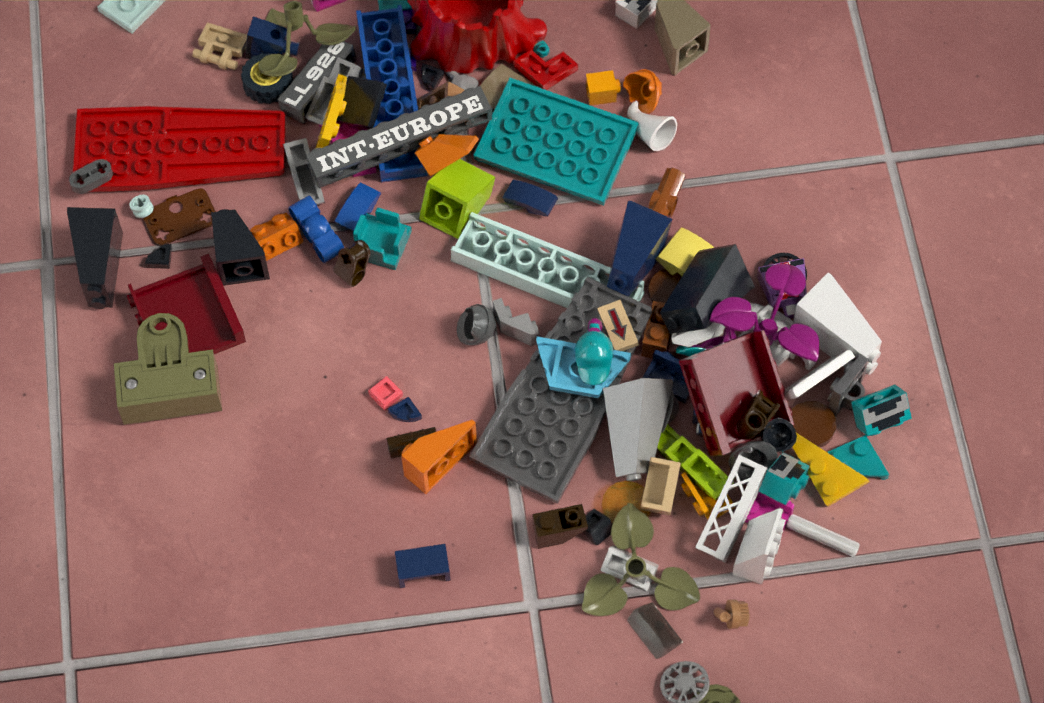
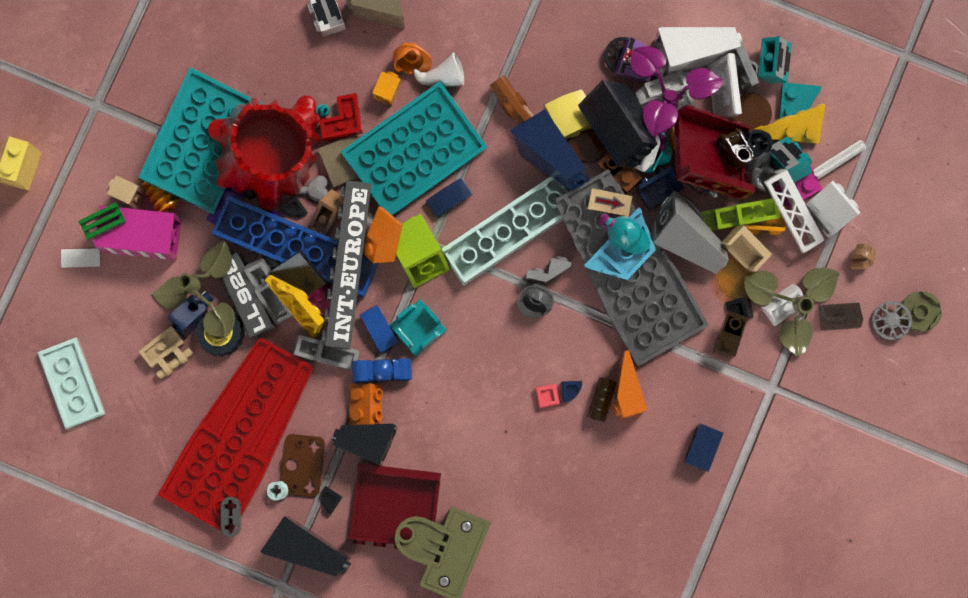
camera: 60 degrees left, 20 degrees up
(353, 262) = (429, 359): dark brown piece -> none

